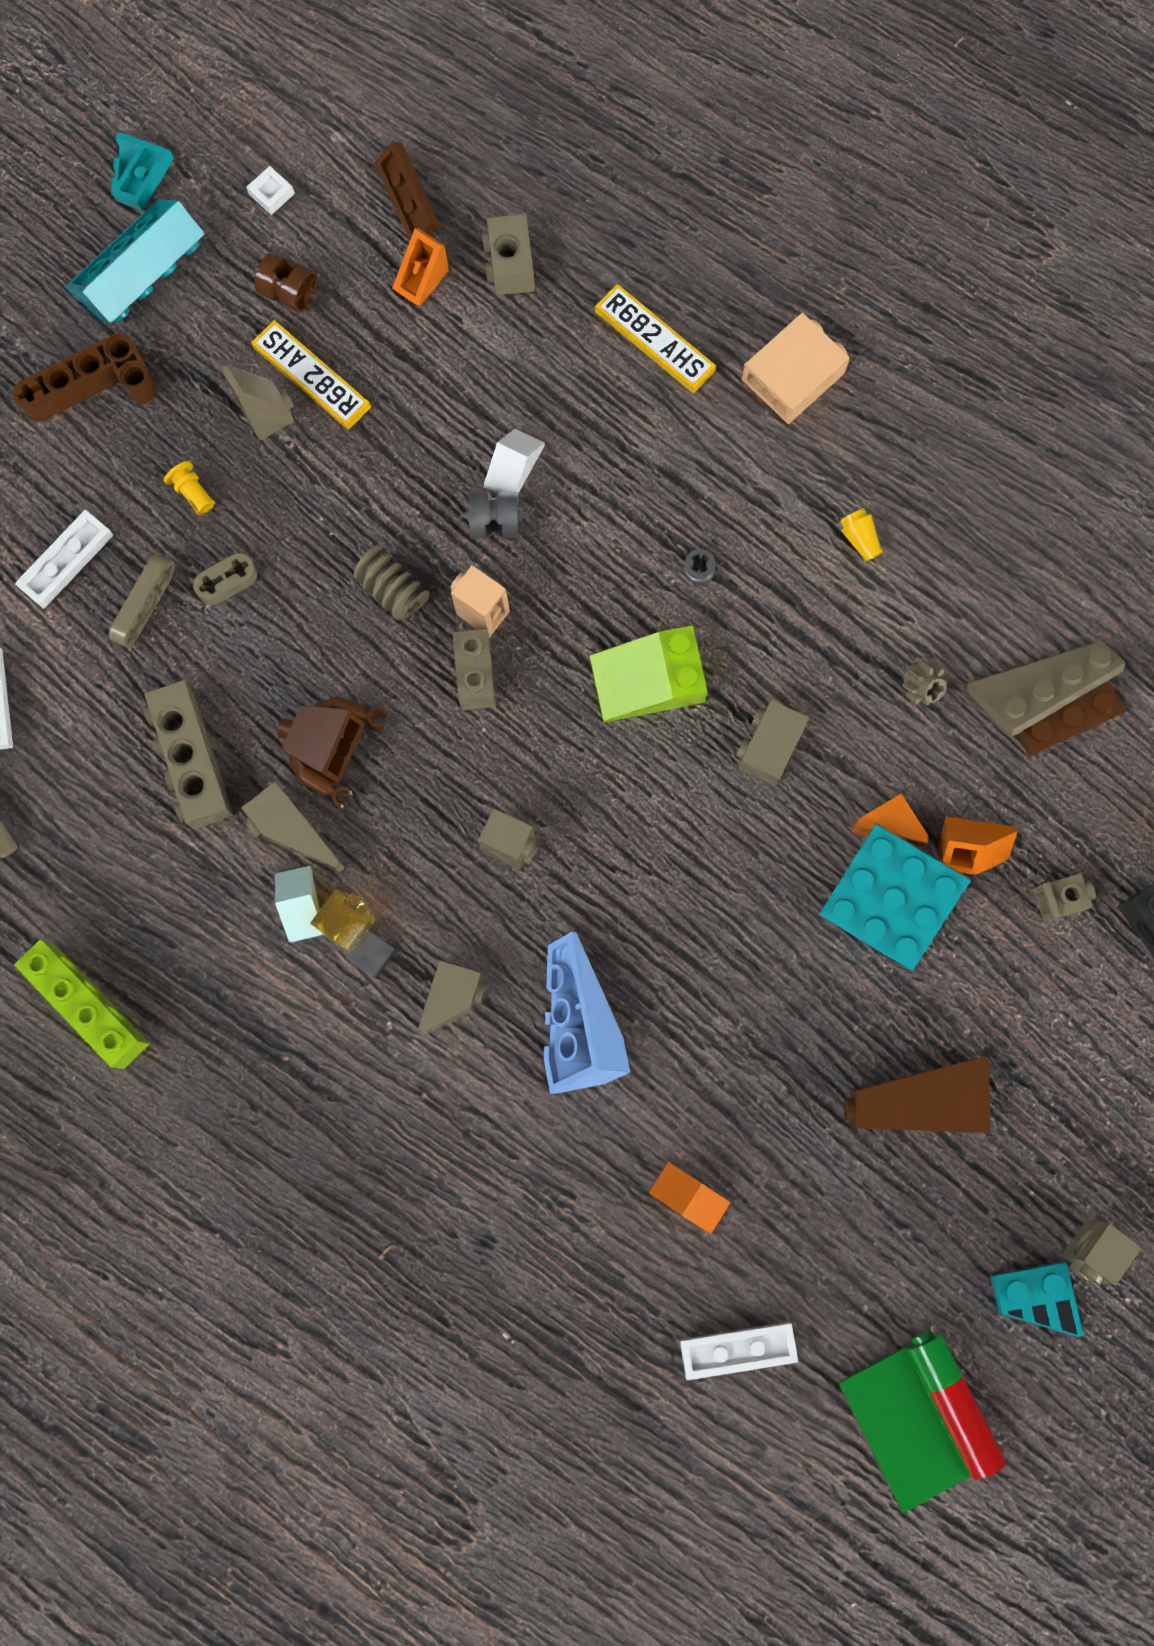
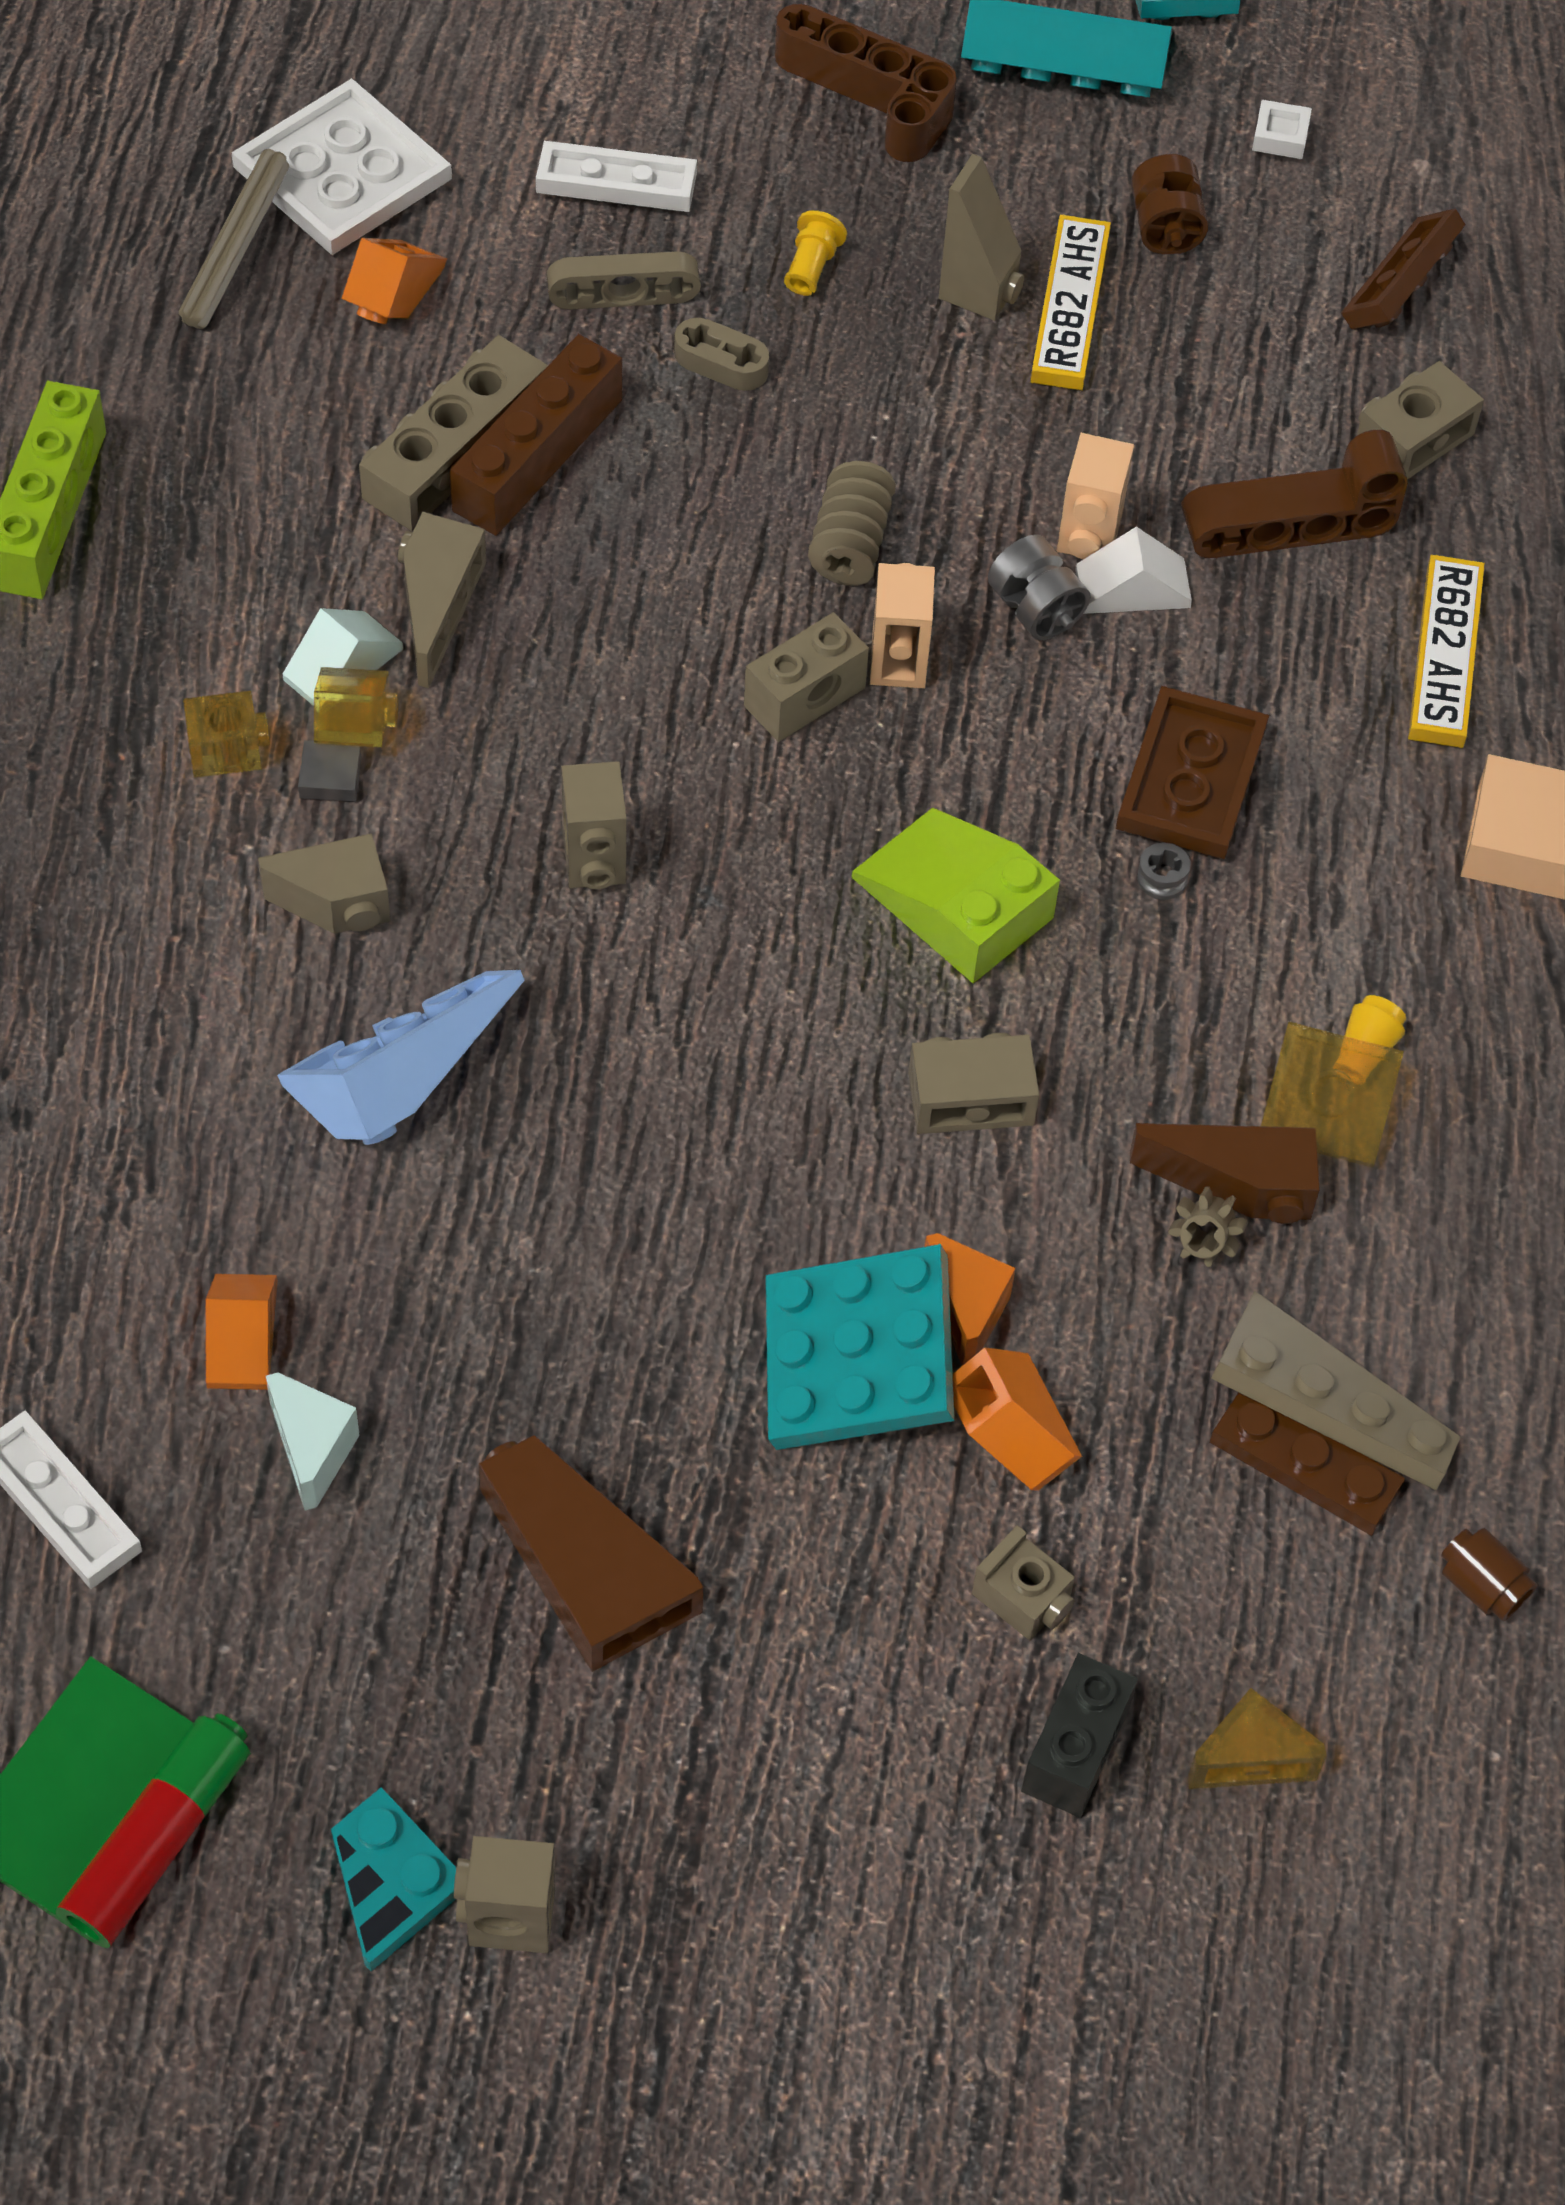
camera: 50 degrees right, 20 degrees down
(56, 725) = (390, 278): none -> orange slope
(221, 712) = (536, 434): none -> reddish brown brick
(299, 1002) = (209, 745): none -> clear yellow brick
(324, 741) = (581, 558): reddish brown torso -> none
(421, 267) = (1314, 337): orange slope -> none
(462, 450) = (1094, 495): none -> light nougat brick
(539, 320) = (1302, 507): none -> reddish brown beam
(653, 512) = (1192, 772): none -> reddish brown plate
(780, 1199) = (314, 1432): none -> light aqua slope
(884, 574) = (1335, 1087): none -> clear yellow tile
(904, 641) = (1262, 1166): none -> reddish brown slope

